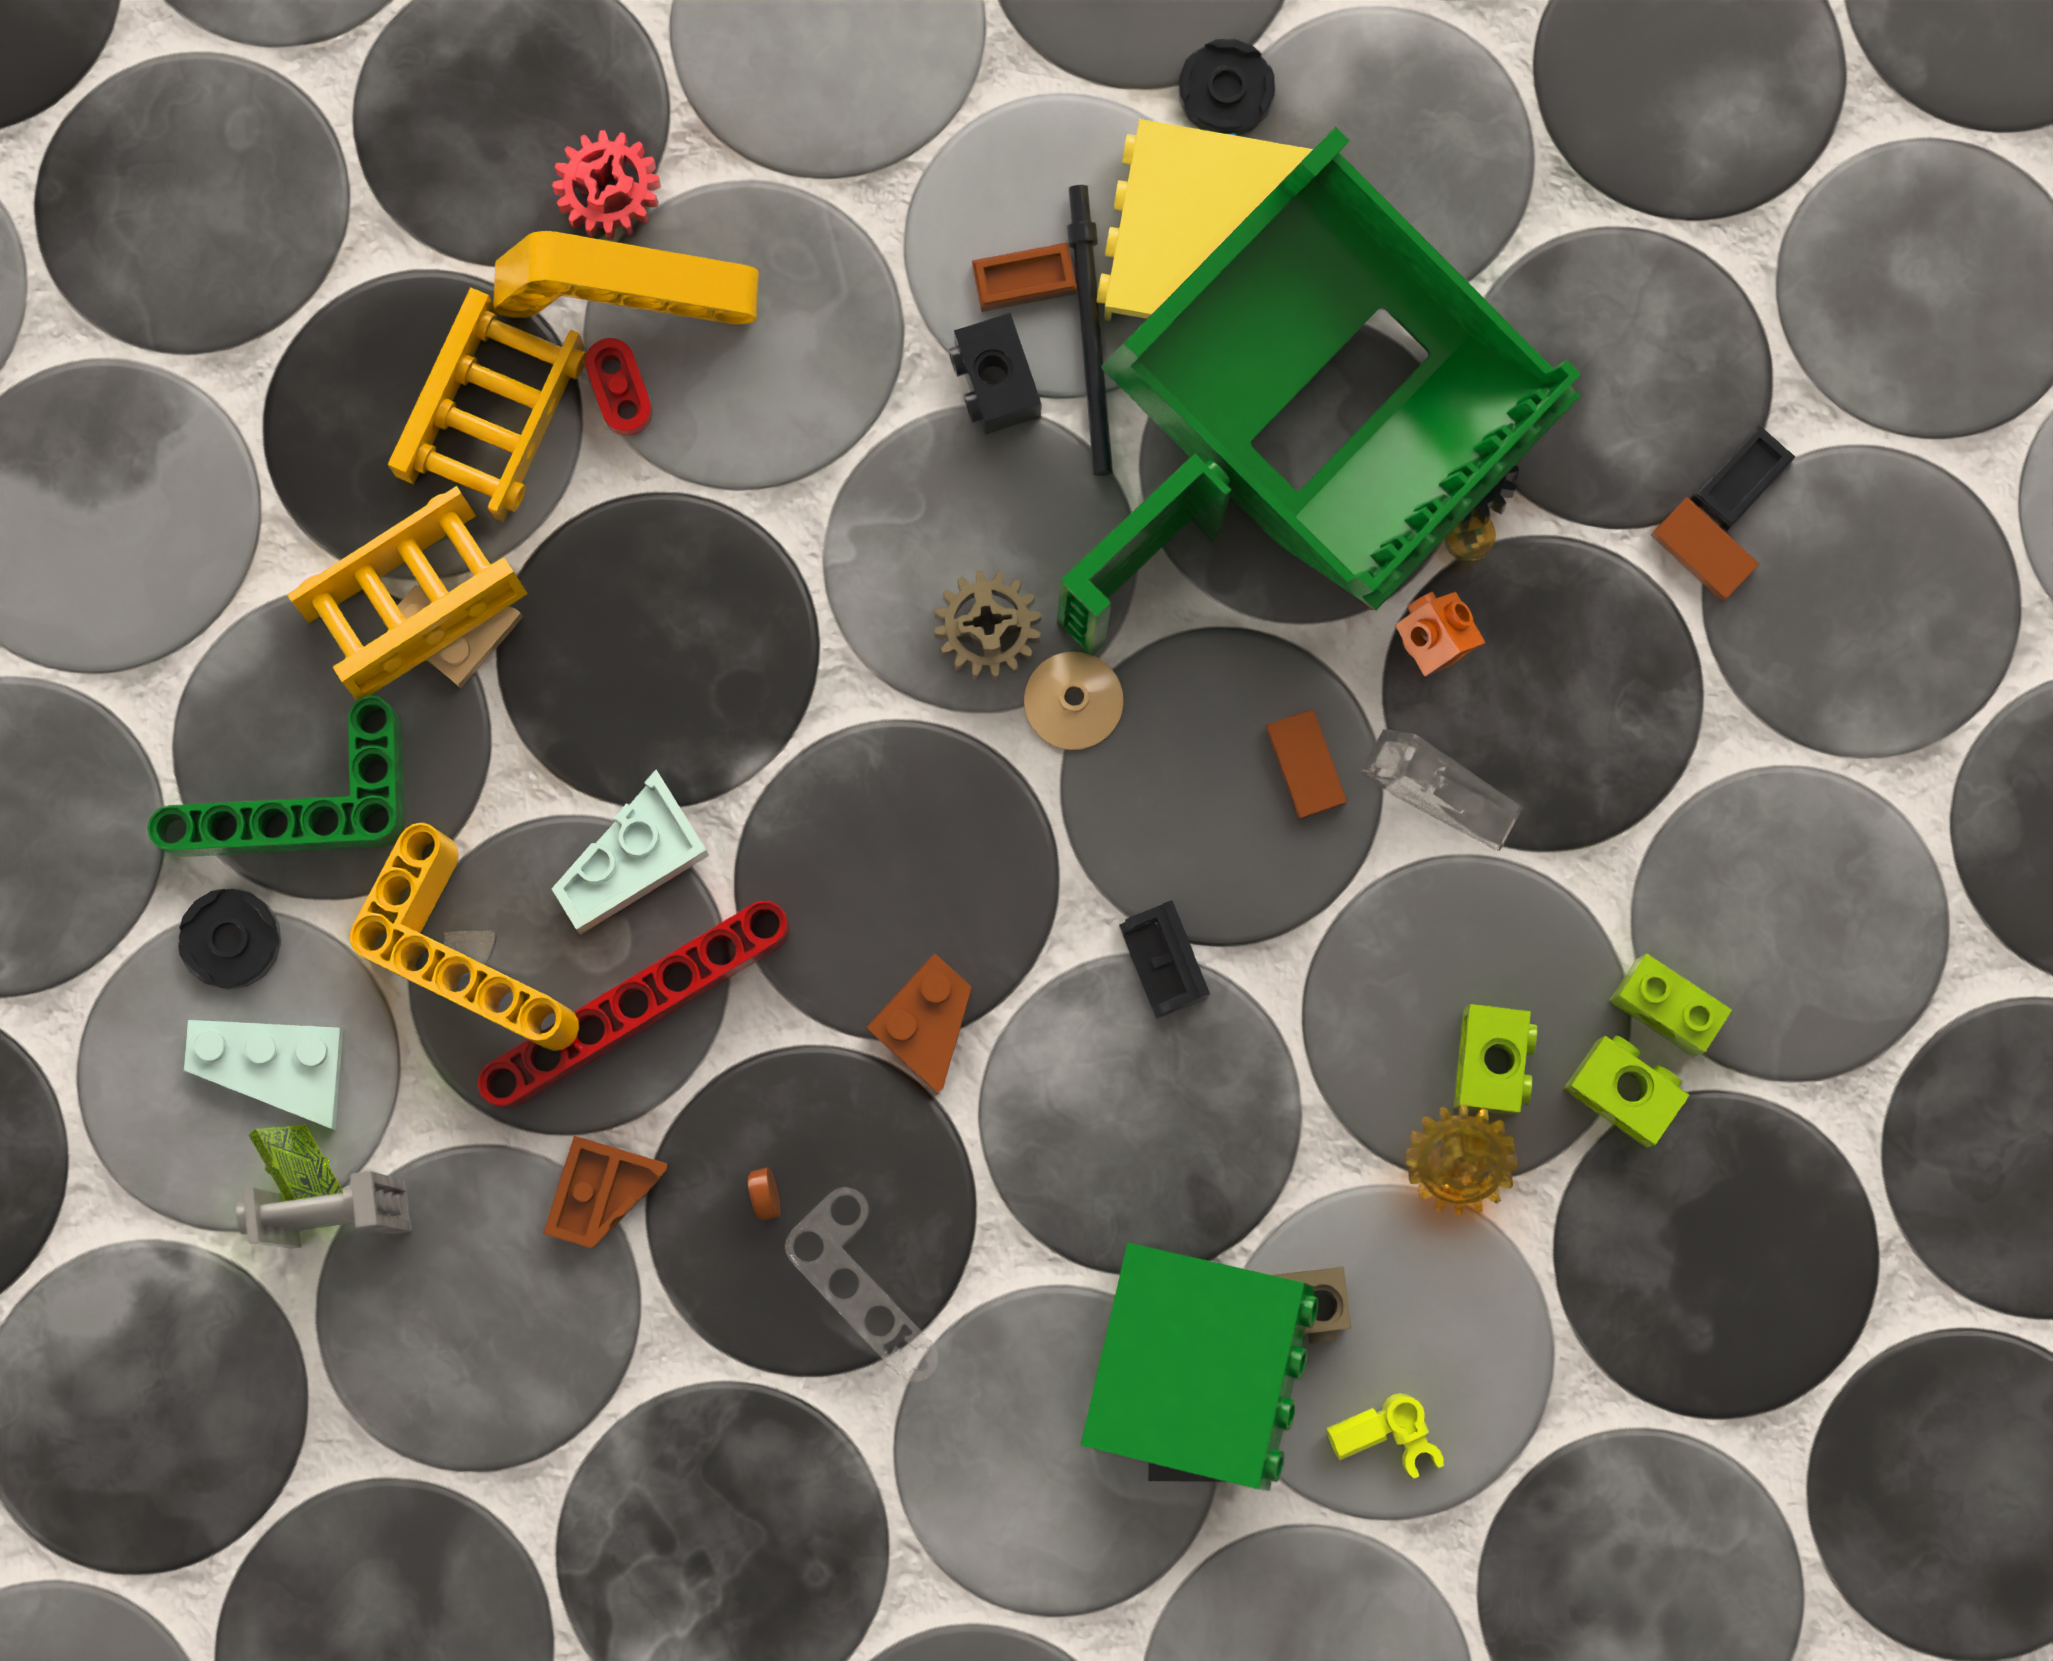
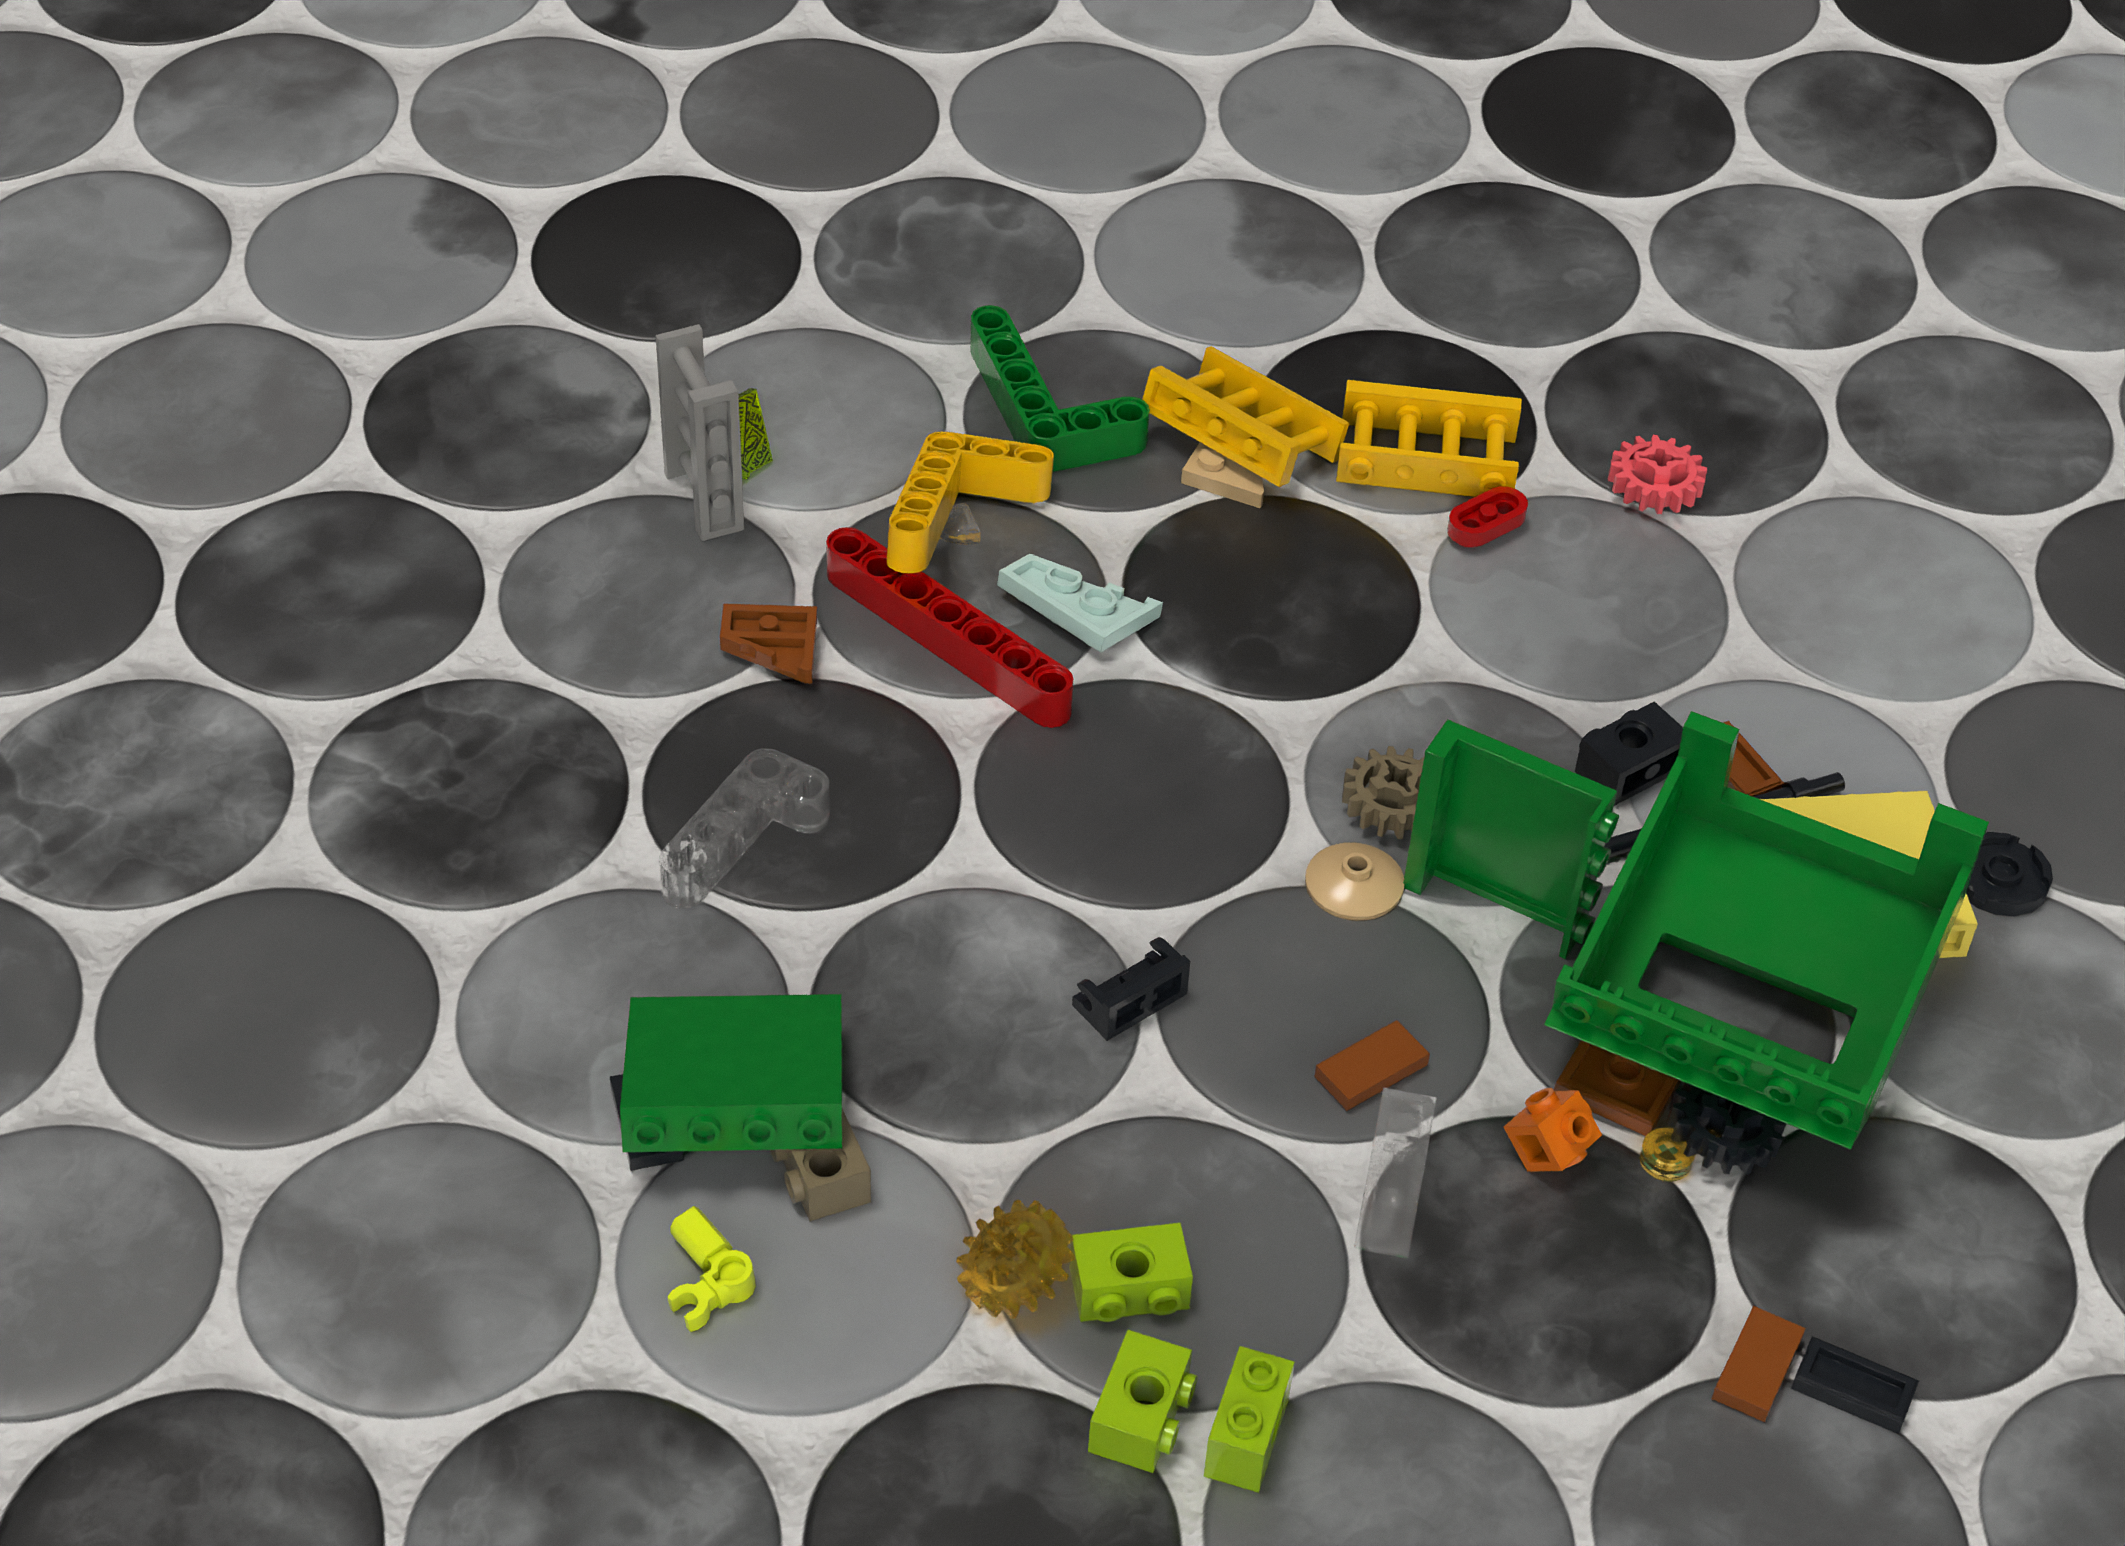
camera: 75 degrees right, 35 degrees down
(229, 938) = (913, 387): black tile -> none
(271, 1062) = (816, 430): light aqua wing -> none
(622, 275) = (1565, 429): yellow beam -> none
(764, 1194) = (806, 741): dark orange tile -> none
(925, 1021) = (1007, 829): dark orange wing -> none

